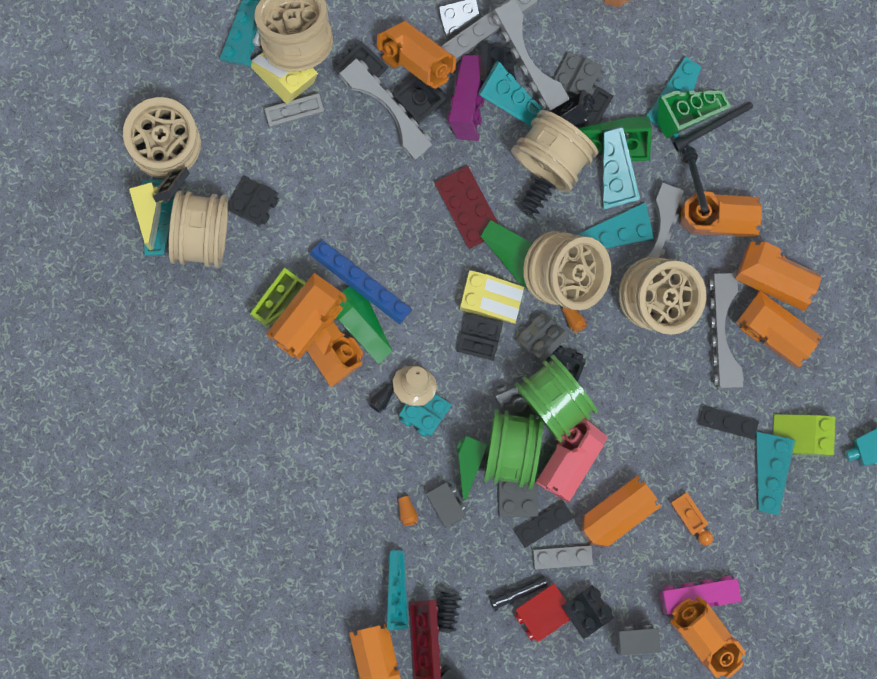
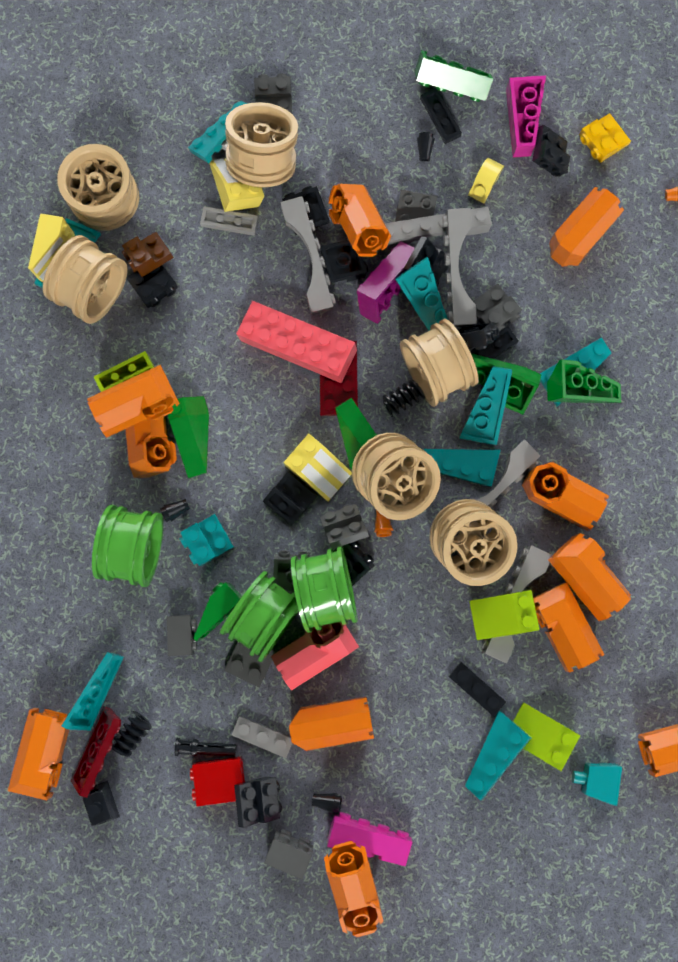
camera: 35 degrees right, 0 degrees up
(171, 185) = (83, 229): black plate -> none
(235, 177) = (146, 253): none -> reddish brown plate
(361, 282) = (209, 398): blue plate -> none
(363, 446) = (127, 545): none -> bright green wheel
(408, 514) = (143, 625): orange cone -> none
(414, 385) = (208, 513): tan hat -> none
(416, 192) = (297, 341): none -> coral brick
(544, 524) = (260, 697): black plate -> none
(647, 584) = (329, 802): none -> black cone
(681, 143) = (559, 413): black piece -> none
(690, 157) = (561, 428): black piece -> none
(692, 518) = (399, 762): orange plate -> none
(720, 345) = (504, 615): none -> lime slope

